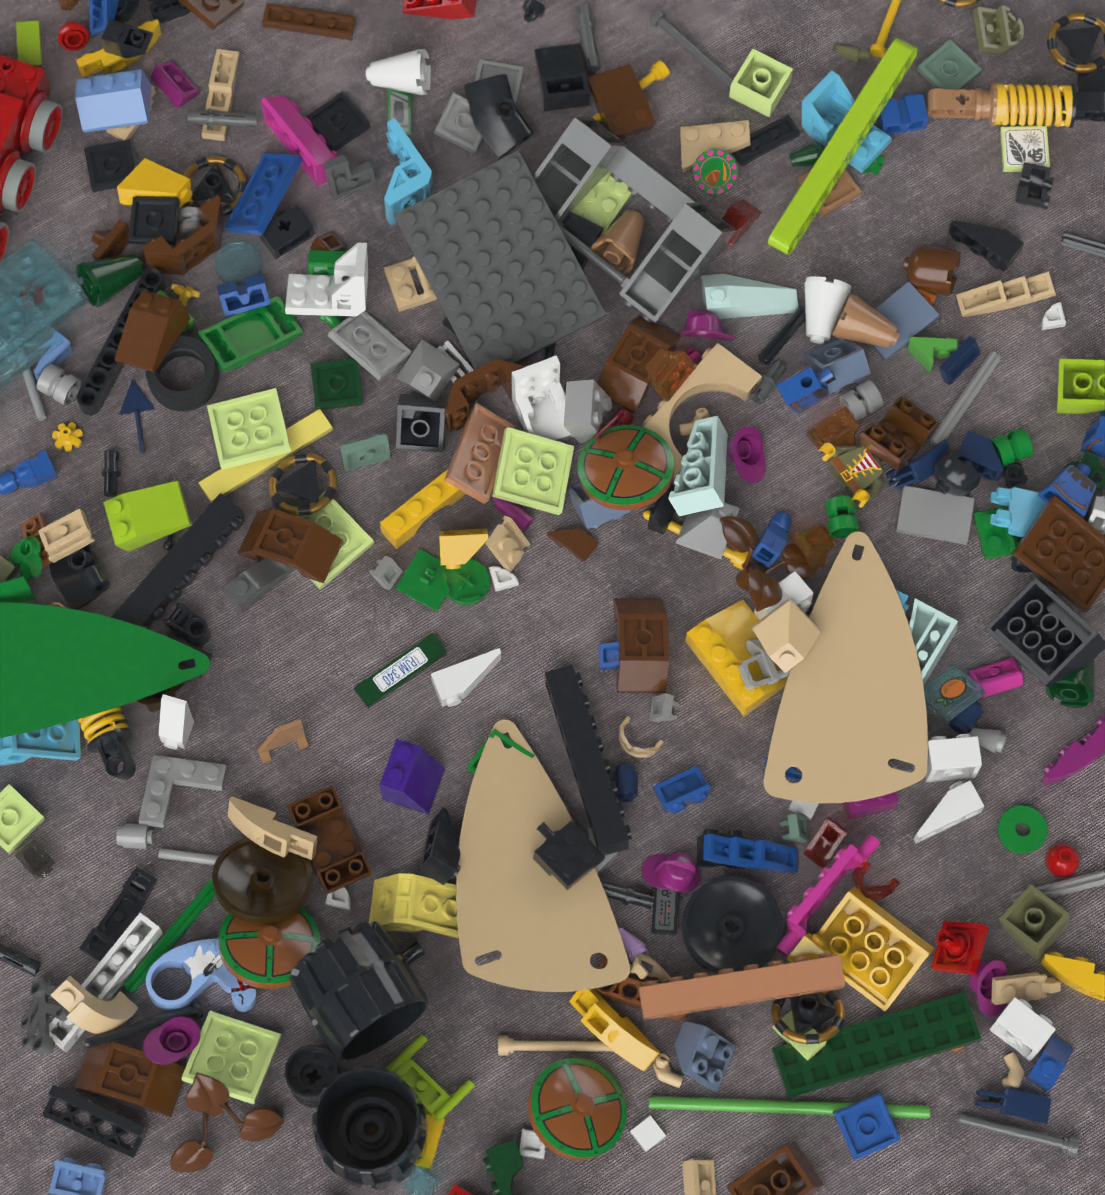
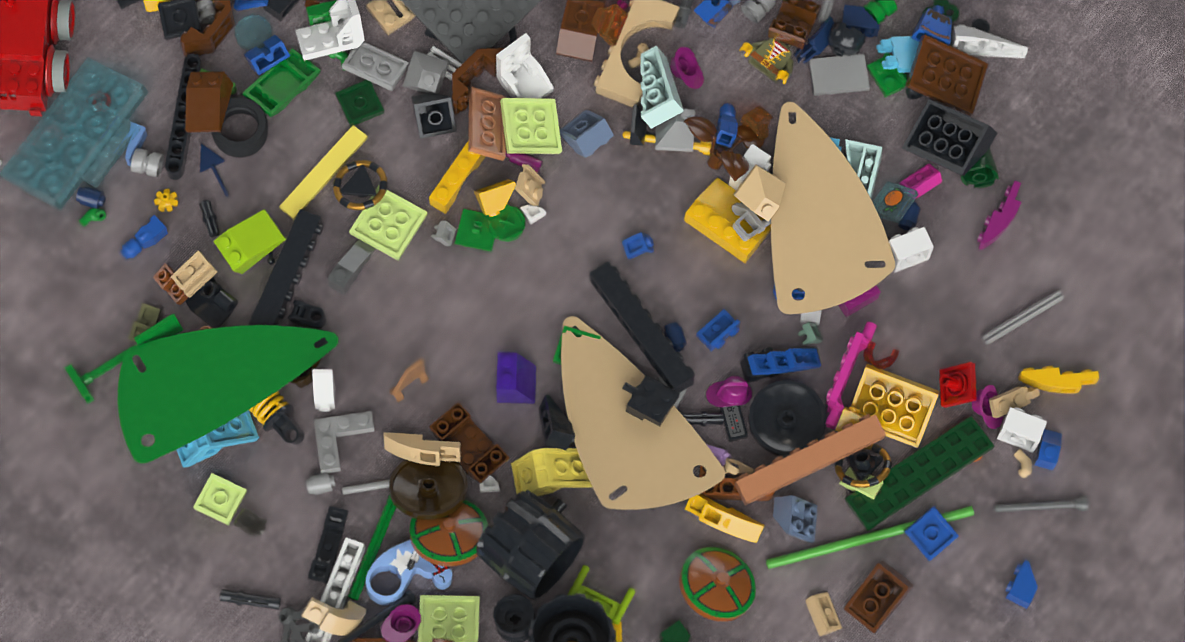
camera: 20 degrees left, 0 degrees up
(28, 556) = (167, 299): green plate -> none
(34, 394) = (129, 175): light grey bar -> none
(108, 277) = (158, 70): dark green cone -> none
(112, 243) = (150, 45): reddish brown tile -> none
(185, 292) = (220, 65): yellow plant -> none
(249, 428) = (304, 154): yellowish green plate -> none
(292, 543) = (366, 230): reddish brown slope -> none
(365, 452) = (402, 146): sand green plate -> none
(400, 670) = (479, 303): tile -> none
(460, 679) = (524, 299): white slope -> none
(509, 1045) = (649, 554): tan piece -> none
(531, 1145) = (691, 620): white tile -> none
(575, 541) = (578, 169): reddish brown slope -> none
(585, 409) = (556, 68): light grey slope -> none
(621, 417) = (582, 72): dark red plant -> none
(626, 467) = (601, 103): dark orange dish -> none
(635, 751) = (675, 312): tan helmet -> none
(641, 645) = (655, 232): reddish brown slope -> none
(648, 1134) = (773, 587): white tile -> none
(662, 708) = (683, 274): light grey tile -> none
(664, 1072) = (771, 540): tan arm -> none
(826, 842) = (836, 337): clear red slope -> none
(837, 429) = (746, 31): clear orange slope -> none
(841, 515) = (771, 94): green wheel -> none
(956, 806) = (924, 281): white slope -> none
(990, 739) = (933, 227): light grey cone -> none
(1016, 469) = (888, 23): black plate -> none
(1018, 1104) = (1034, 485): dark blue arm -> none
(1032, 820) = (979, 277): green tile -> none
(1035, 922) = (1006, 350): olive slope -> none
(1062, 860) = (1011, 300): red brick -> none

